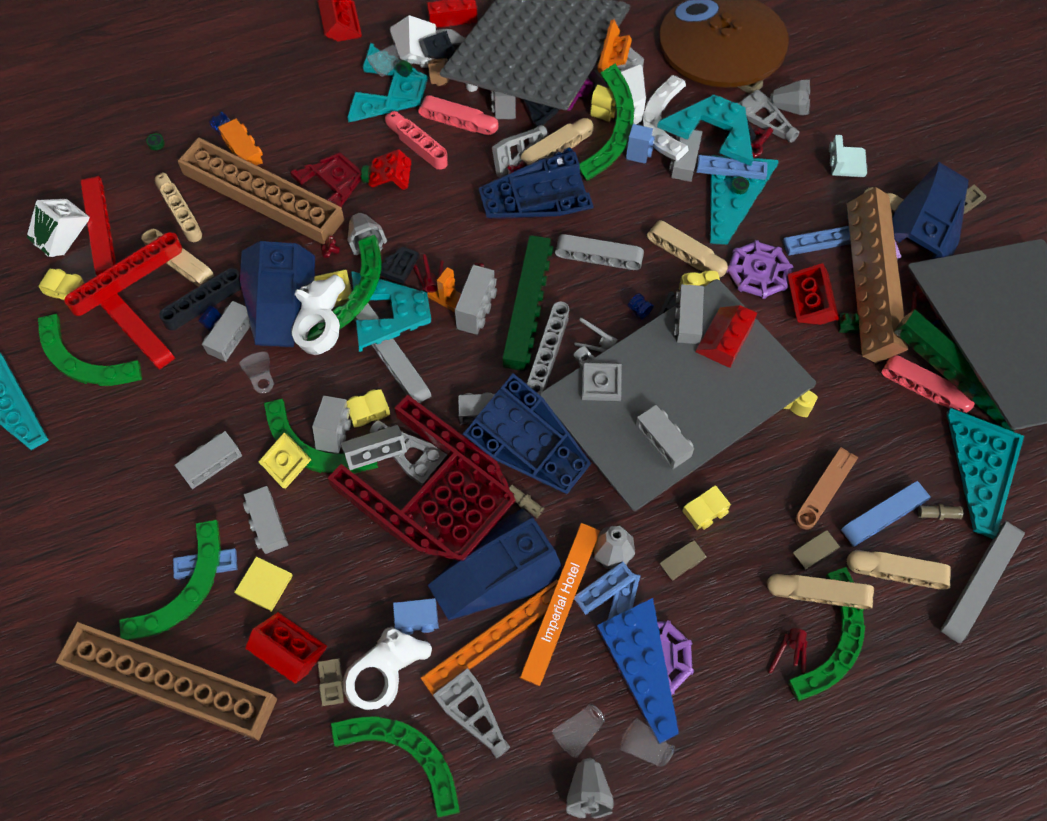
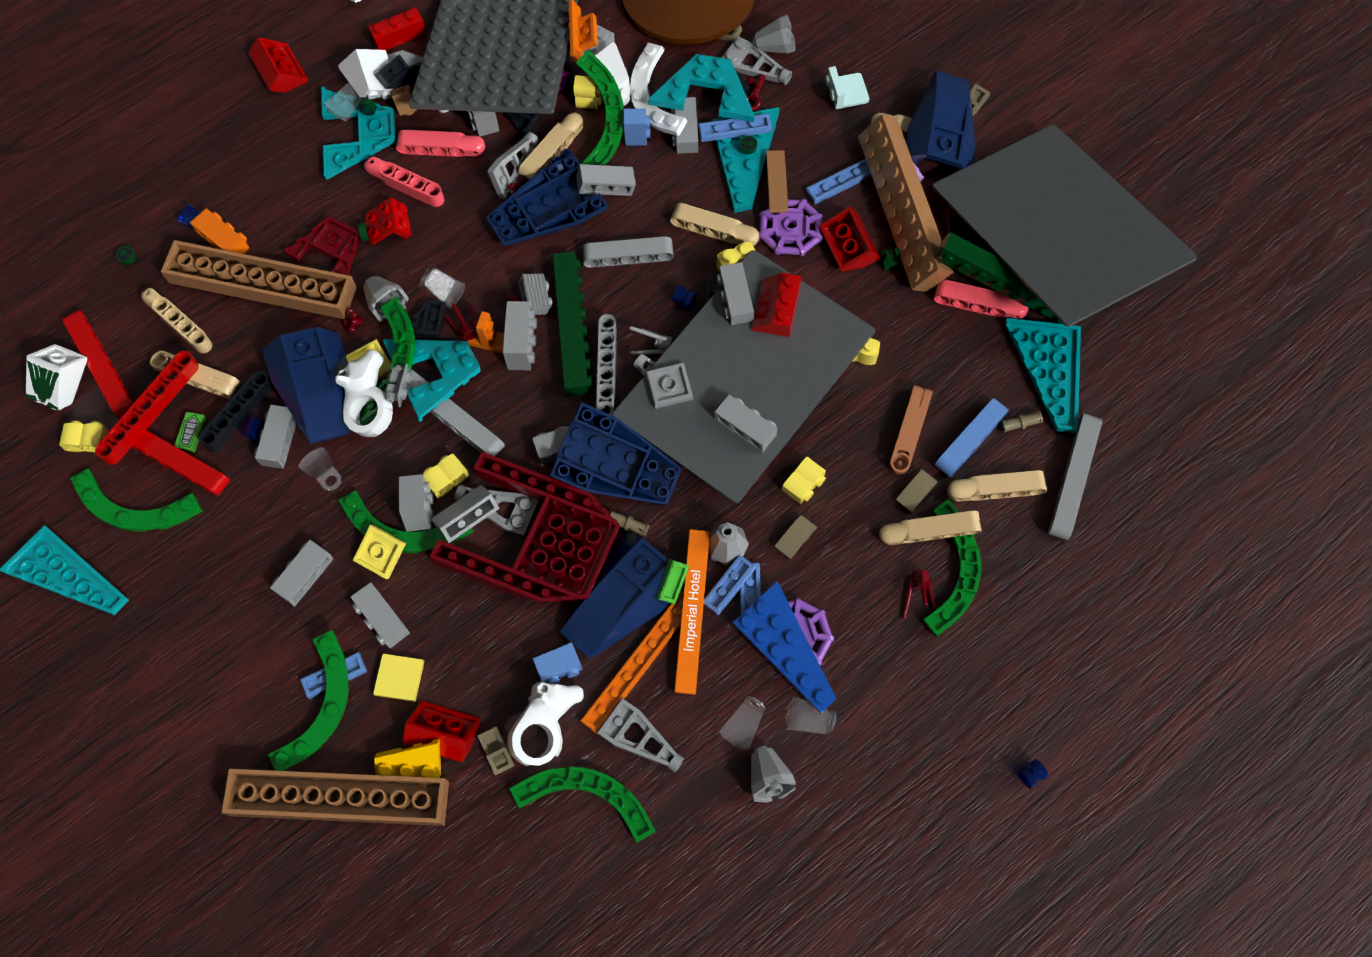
camera: 15 degrees left, 5 degrees up
(154, 305) = (190, 431): none -> bright green tile
(251, 669) = (410, 762): none -> yellow wing
(349, 319) = (401, 378): none -> light grey hinge
(421, 239) = (443, 286): none -> clear piece
(503, 264) = (534, 290): none -> light grey brick
(549, 568) = (672, 581): none -> bright green tile
(598, 183) = (605, 180): none -> light grey brick
(758, 224) = (777, 181): none -> medium nougat slope

